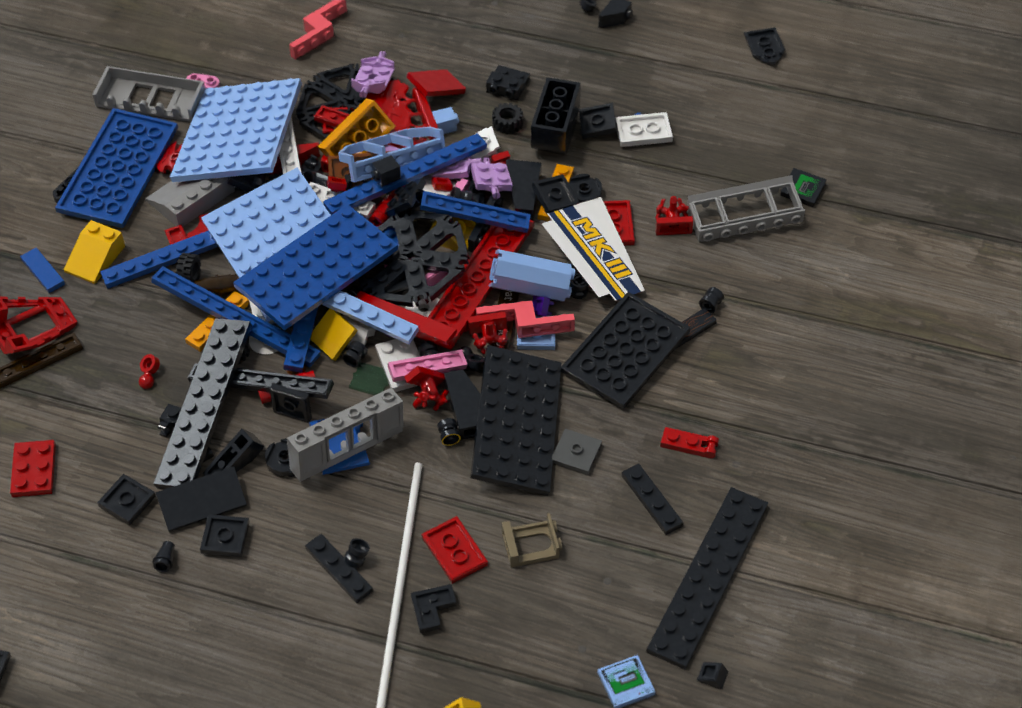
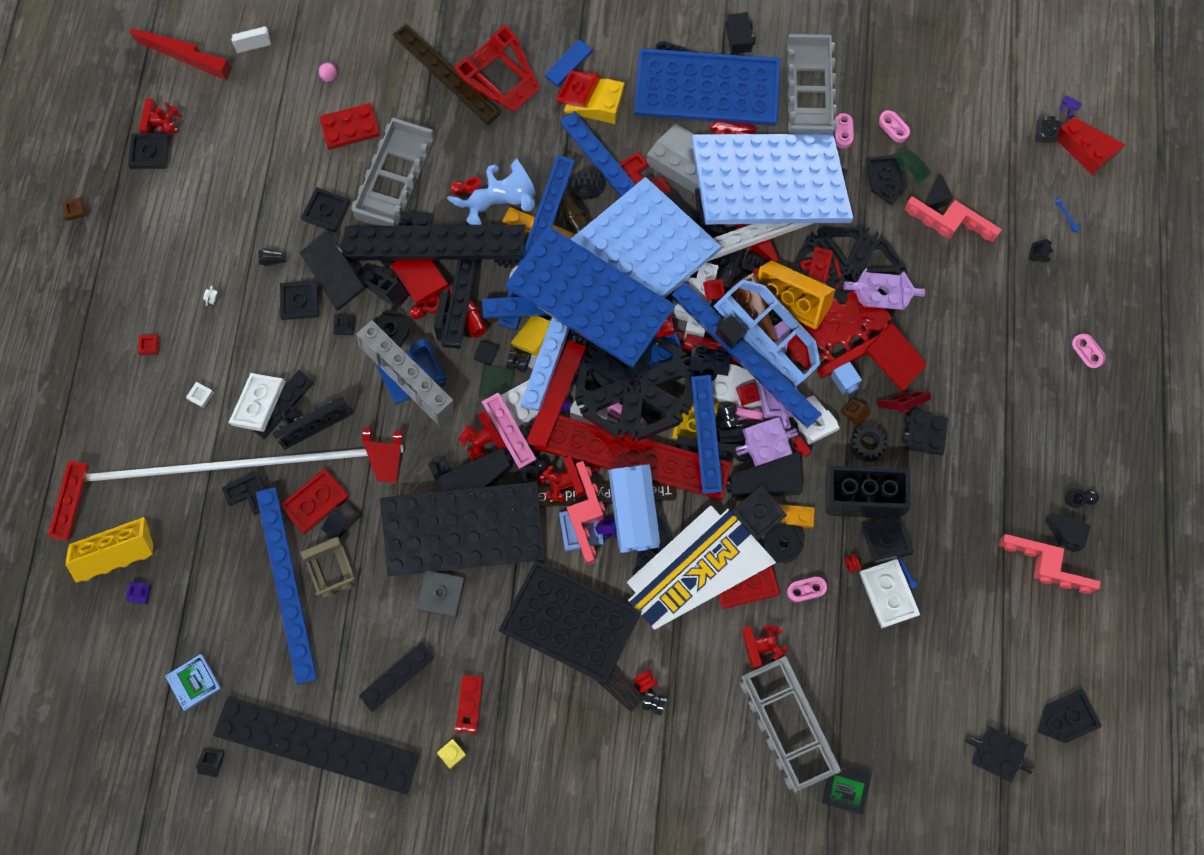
camera: 80 degrees right, 20 degrees up
(71, 134) = (739, 33): none -> black brick
(78, 262) = (578, 88): none -> red tile
(79, 412) = (402, 141): none -> light grey window
(169, 323) = (514, 190): none -> light blue animal
(191, 620) = (210, 296): none -> white plate
(213, 47) = (895, 126): none -> bright pink plate
(227, 693) = (148, 345): none -> red tile
(243, 414) = (420, 279): none -> red tile
(253, 42) = (909, 160): none -> clear green slope
(261, 62) = (886, 178): none -> black tile
(266, 500) = (343, 325): none -> black tile
(273, 431) = (418, 312): none -> red plate
(288, 30) = (940, 194): none -> black slope
(305, 643) = (200, 395): none -> white plate
(331, 585) = (257, 402): none -> white tile
(340, 381) = (485, 353): none -> black tile
(372, 530) = (313, 423): none -> black plate
(422, 478) = (383, 456): none -> red flag
(475, 123) = (856, 411): none -> reddish brown slope
(477, 85) = (905, 401): none -> dark red wing
(483, 527) = (341, 519): none -> black slope
(539, 580) = (286, 586): none -> blue plate
(613, 147) = (852, 564): none -> red bush
(629, 181) = (806, 589): none -> bright pink plate
(639, 29) = (1049, 564): none -> coral bracket
(691, 303) = (646, 681): none -> red wheel
(734, 463) = (451, 754): none -> light yellow plate
(788, 89) = (999, 754): none -> black plate

